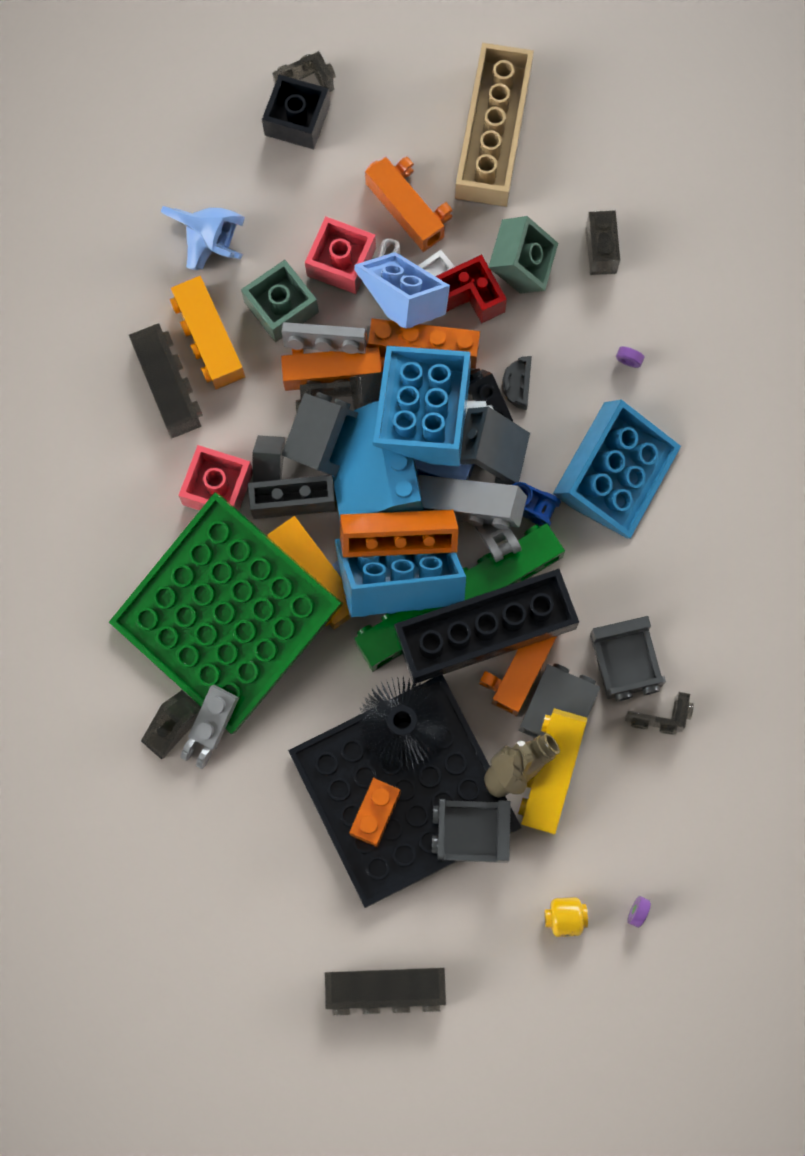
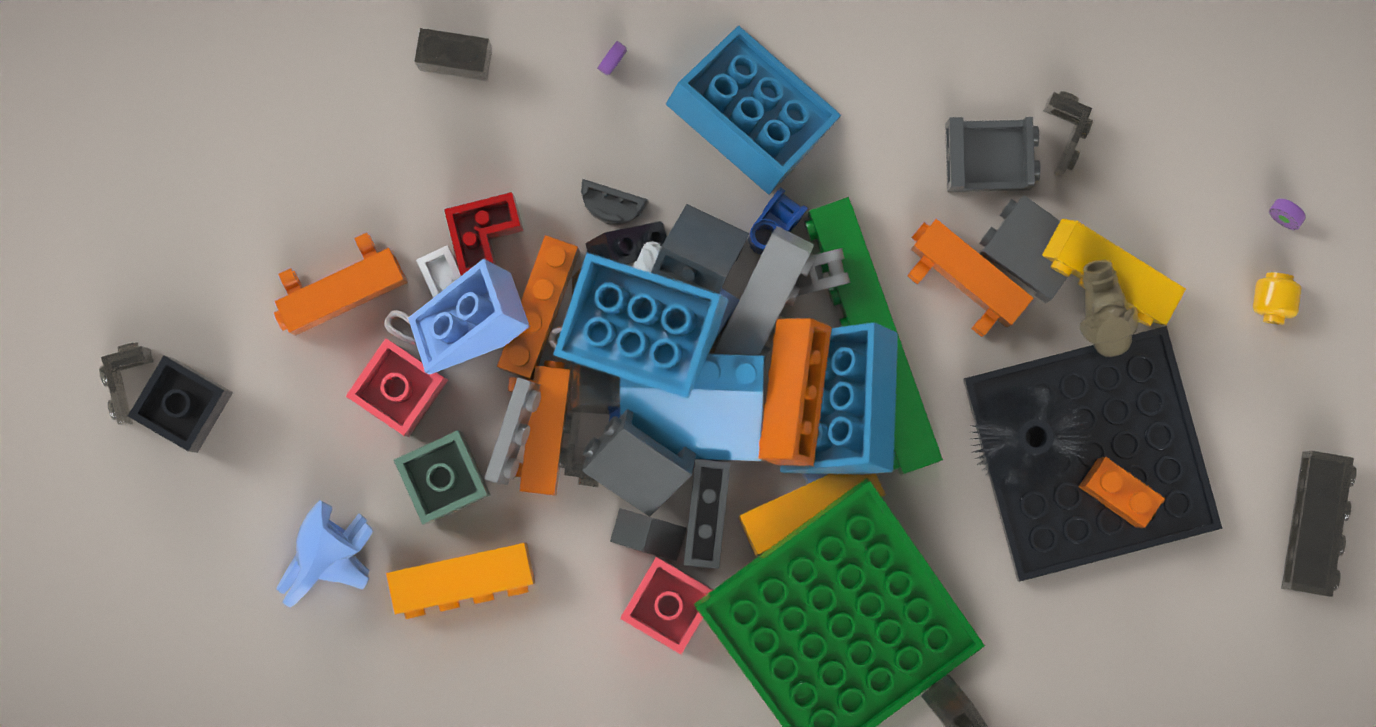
camera: 80 degrees left, 10 degrees up
(165, 381) = (513, 644): clear smoke brick -> none
(210, 724) = (968, 668): light grey hinge -> none
(472, 831) = (1162, 383): dark grey panel -> none
(486, 626) = (932, 312): black brick -> none
(494, 124) = (258, 151): tan brick -> none
(523, 254) = (453, 157): sand green brick -> none

